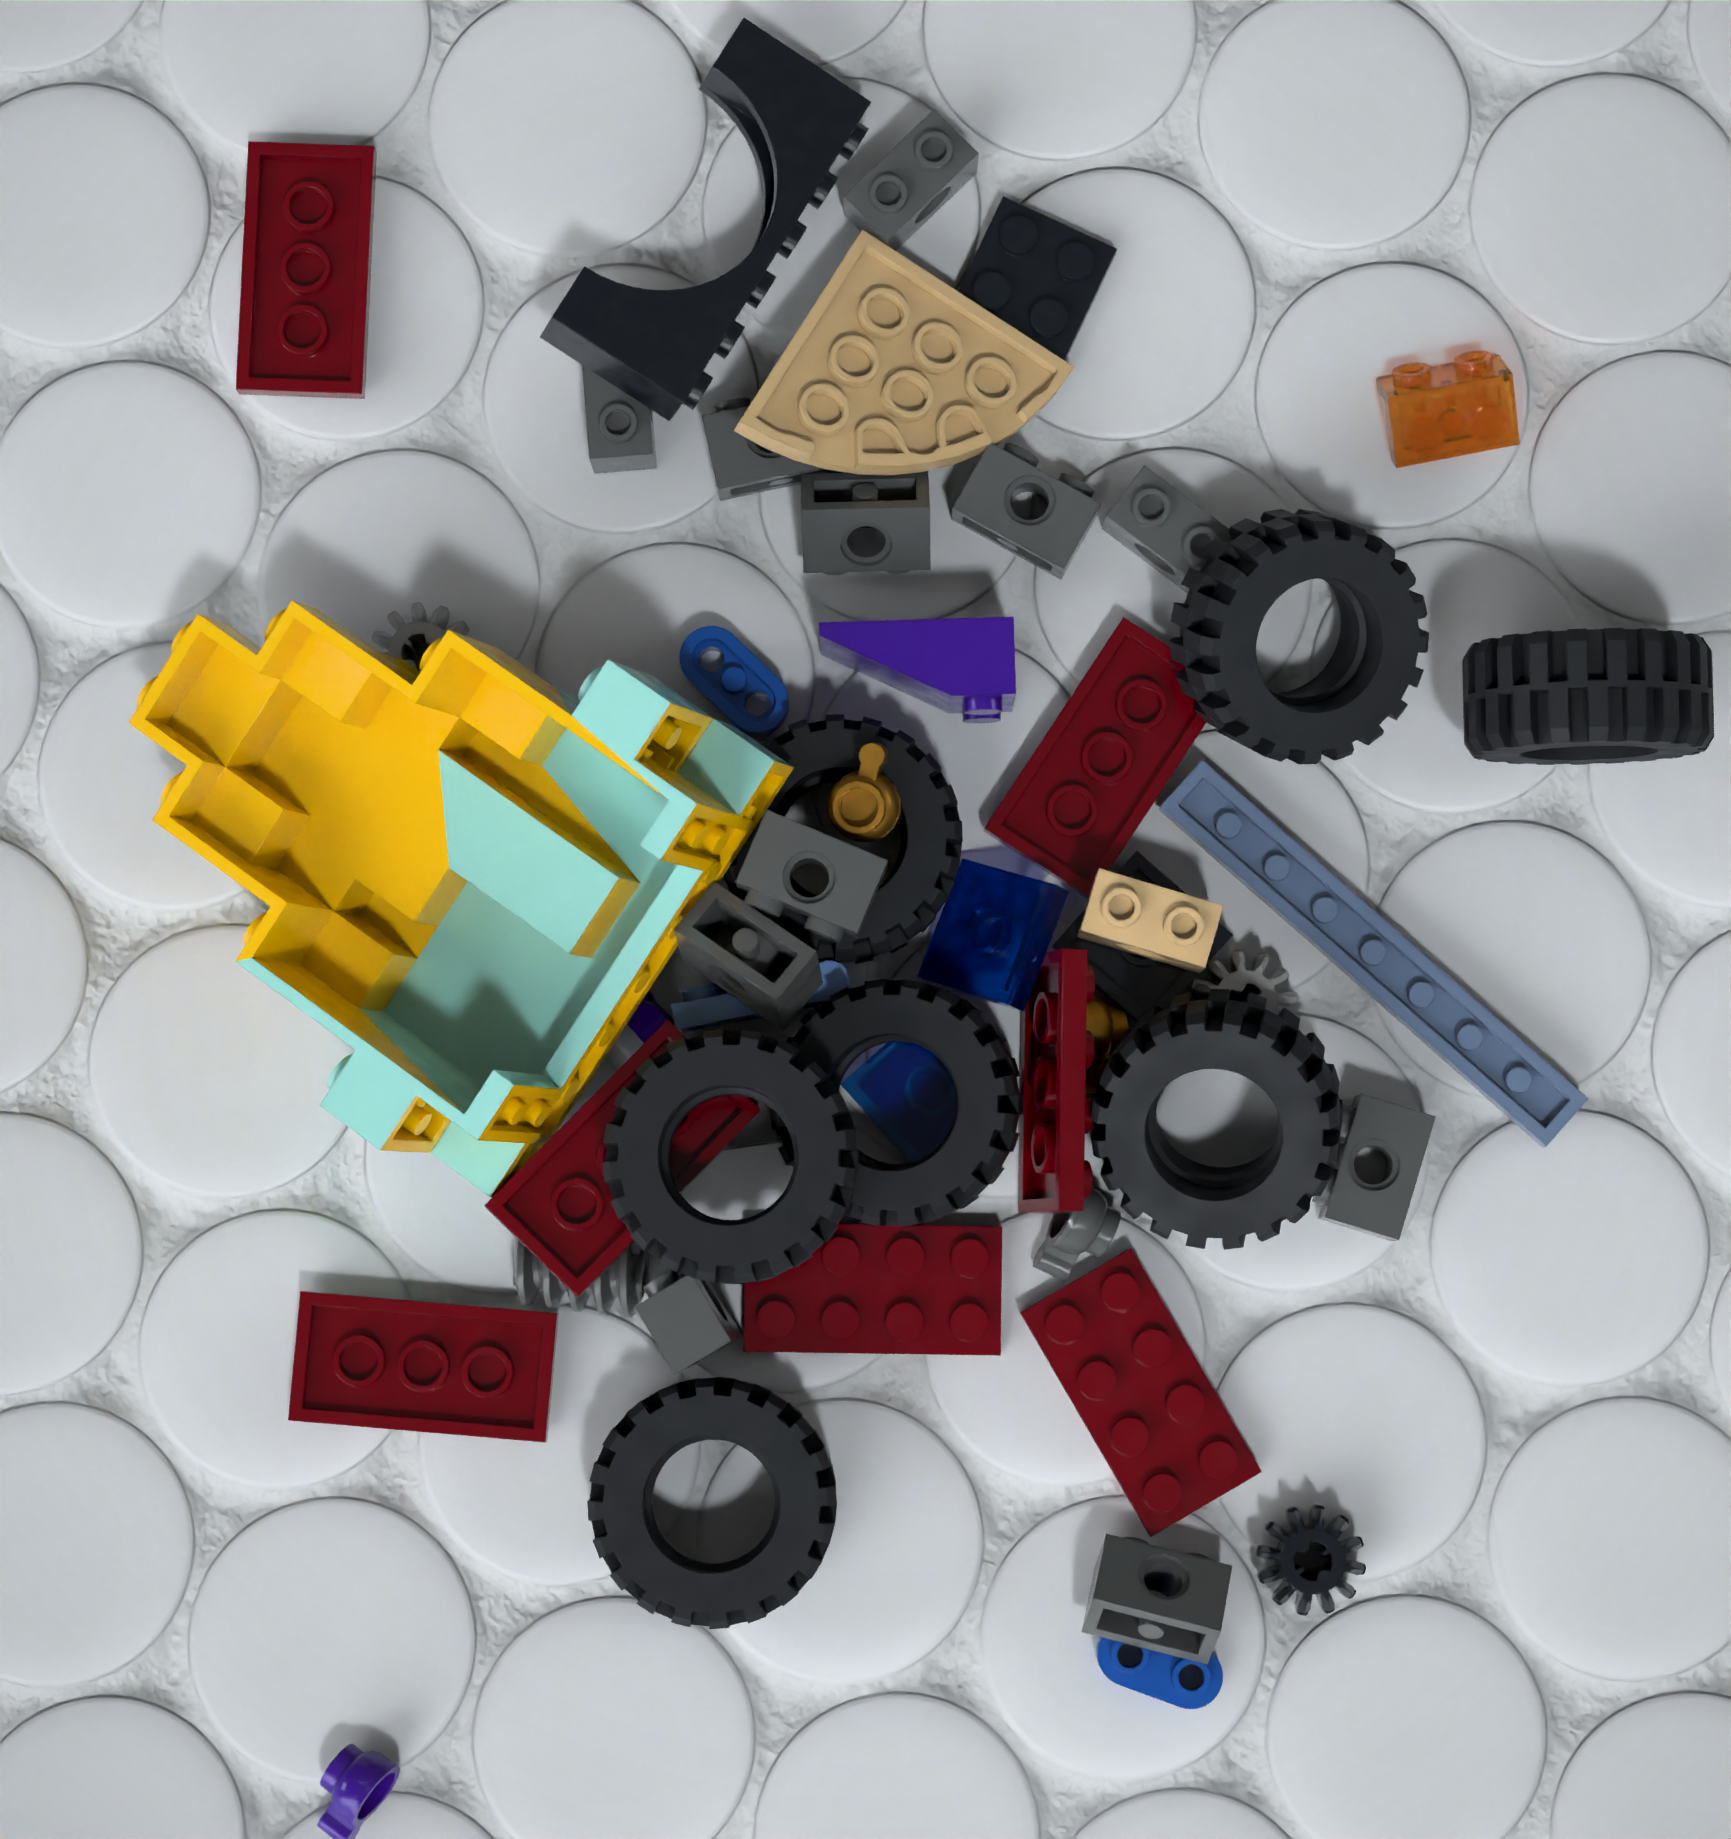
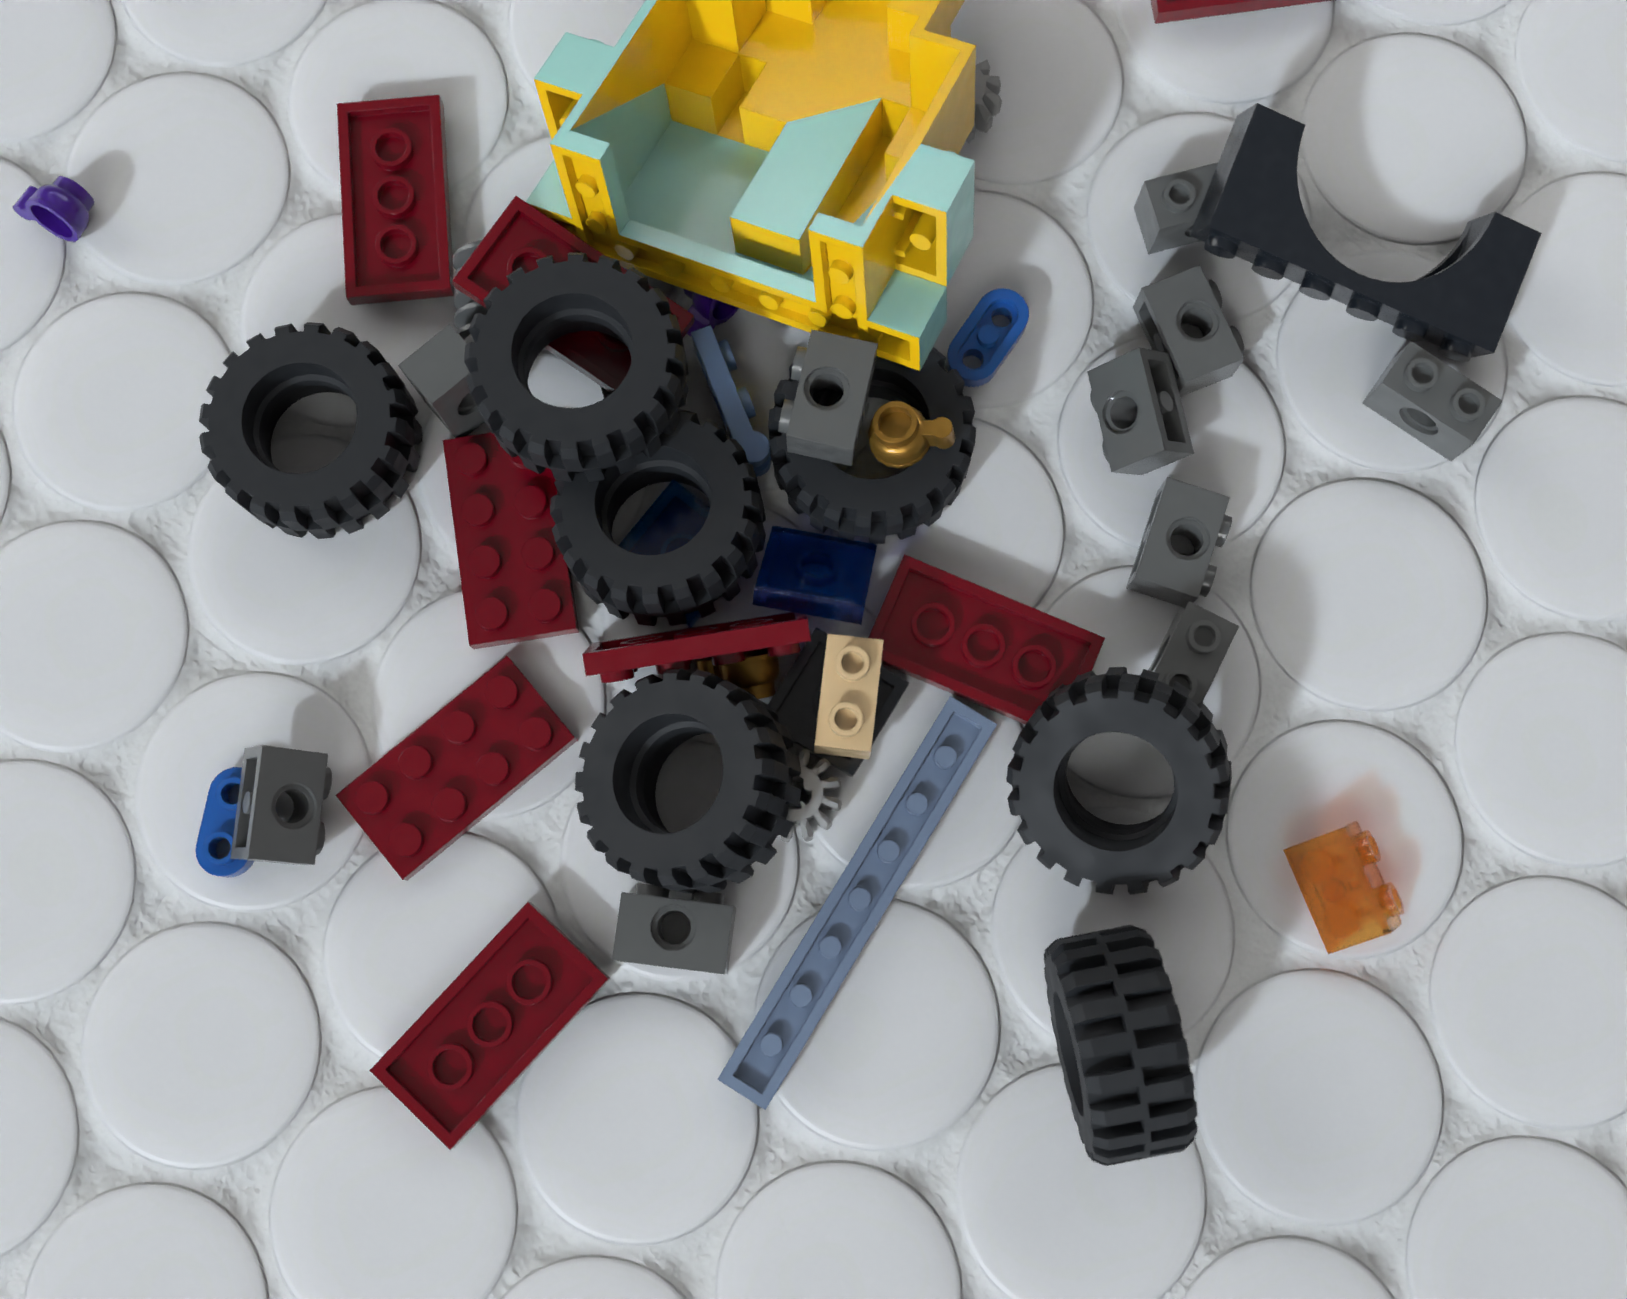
camera: 80 degrees right, 5 degrees down
(748, 955) = (757, 367): dark grey brick -> none
(898, 374) = (1270, 411): tan plate -> none
(943, 662) = (1039, 500): dark purple slope -> none
(1037, 275) = (1372, 520): black plate -> none
(1077, 1233) = (583, 693): dark grey piece -> none
(1321, 1578) = (332, 954): black gear -> none
(1442, 1393) = (490, 1025): none -> dark red plate

